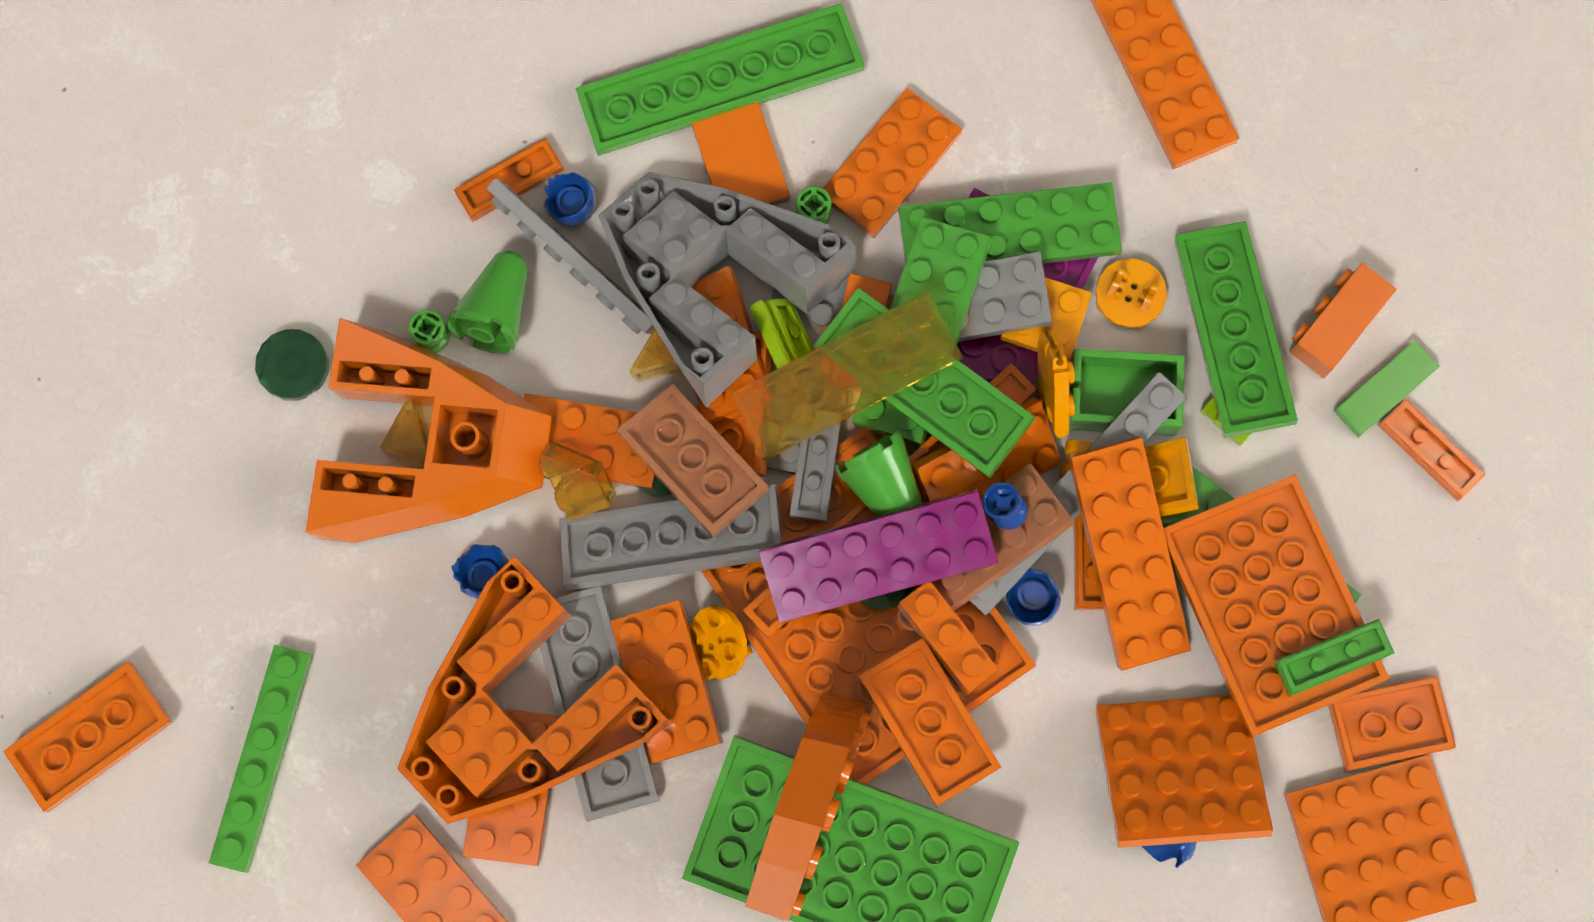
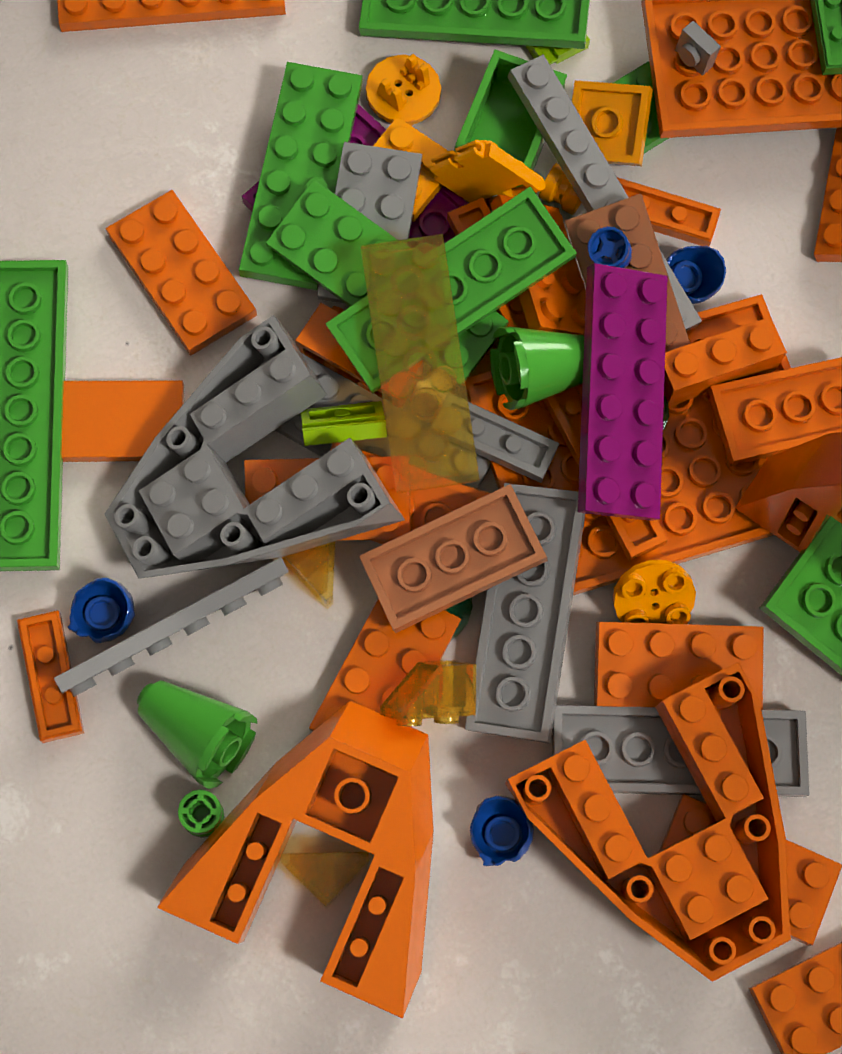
camera: 80 degrees left, 5 degrees down
(292, 364) = (183, 990): clear green tile -> none
(814, 211) = (201, 366): bright green wheel -> none
(1129, 553) = (677, 164): orange plate -> none
(1247, 533) = (697, 48): none -> light grey plate

